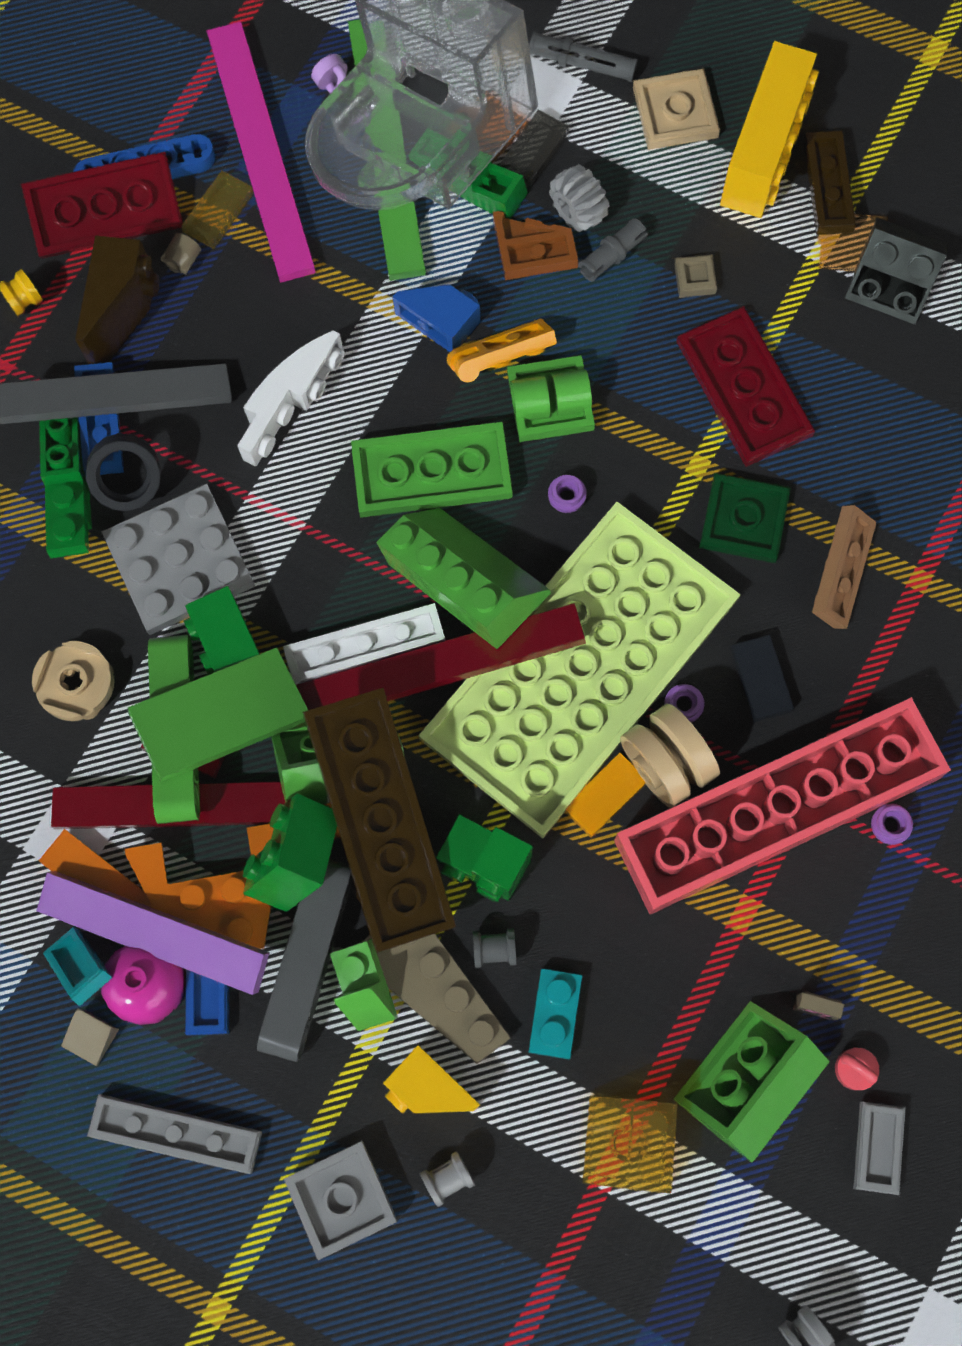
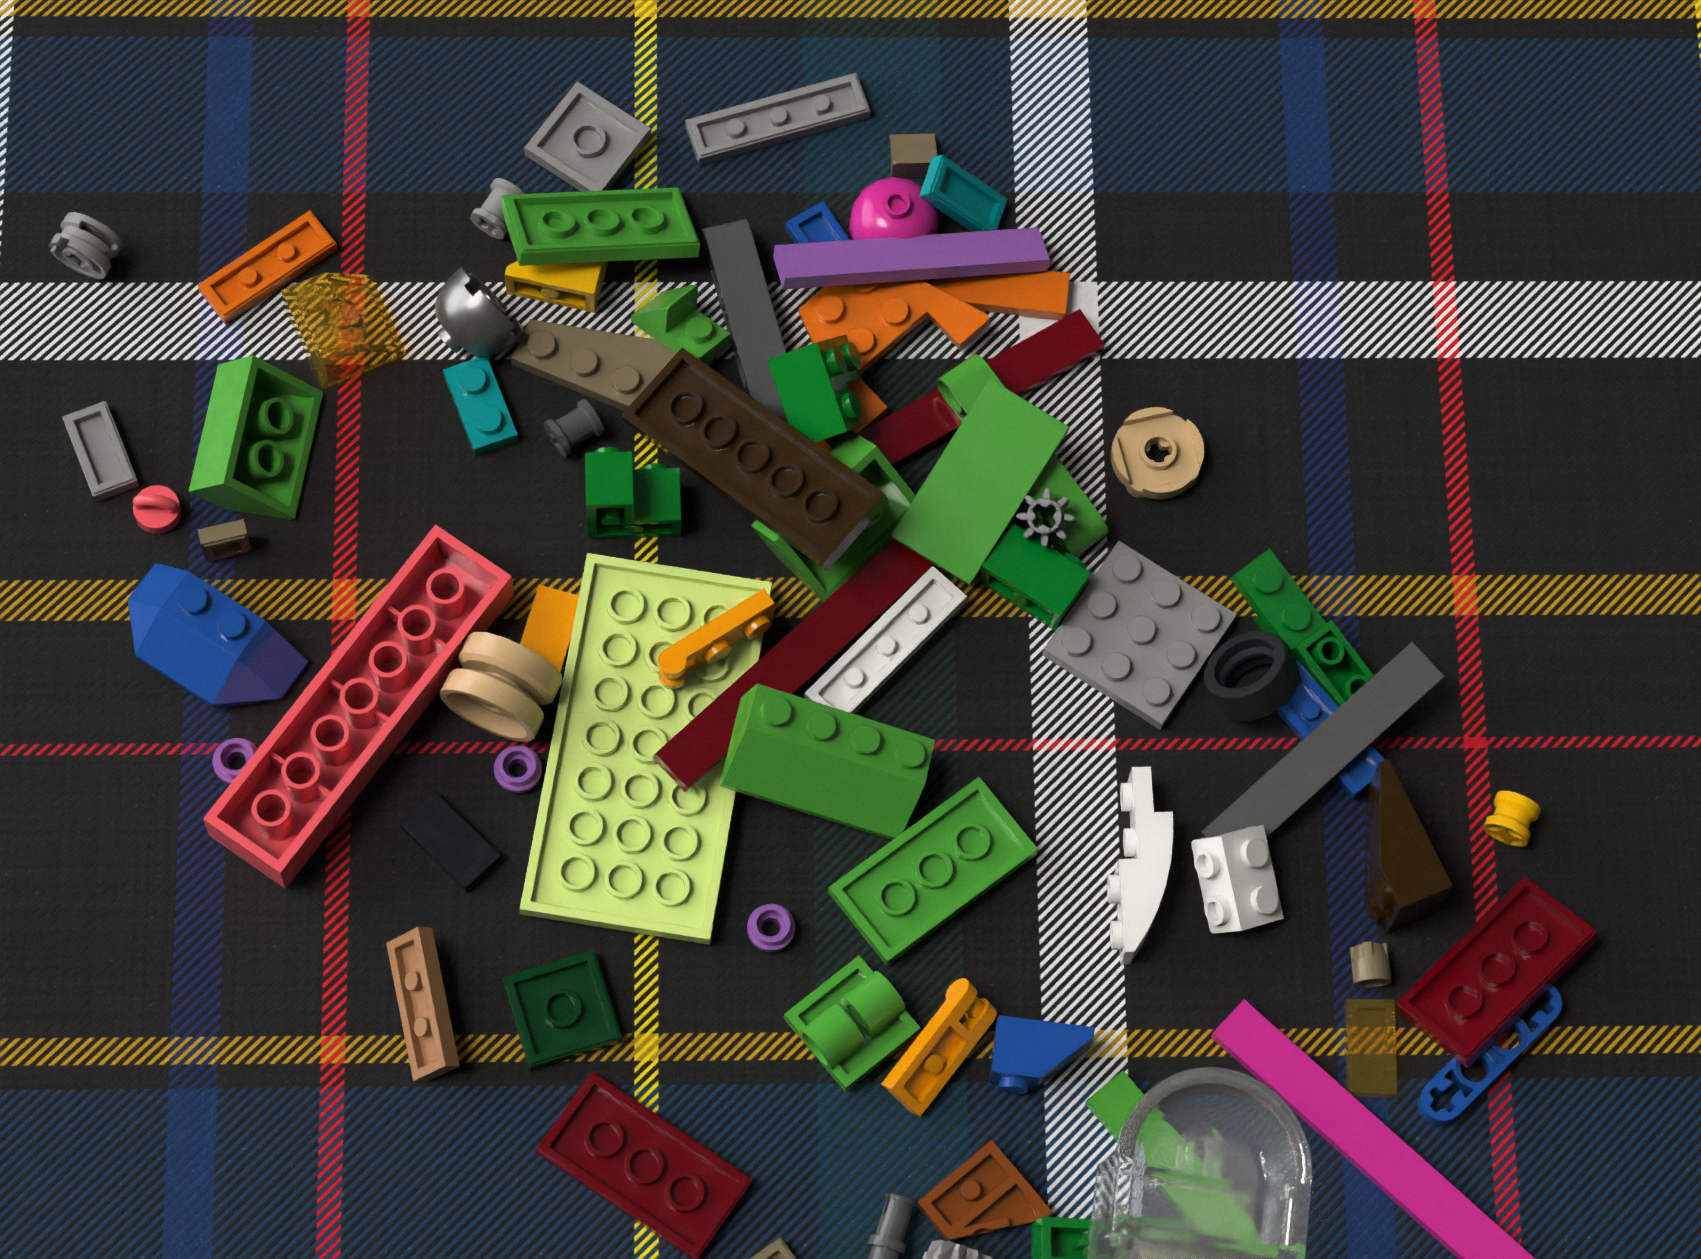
camera: 140 degrees right, 5 degrees down
(198, 649) = (1034, 519): none -> gear
(231, 346) = (1237, 880): none -> white bracket
(379, 1104) = (599, 226): none -> bright green tile
(490, 704) = (715, 639): none -> light orange plate
(522, 1084) = (474, 317): none -> flat silver cylinder
(663, 1240) = (267, 267): none -> orange tile
(872, 932) = (209, 641): none -> blue wedge

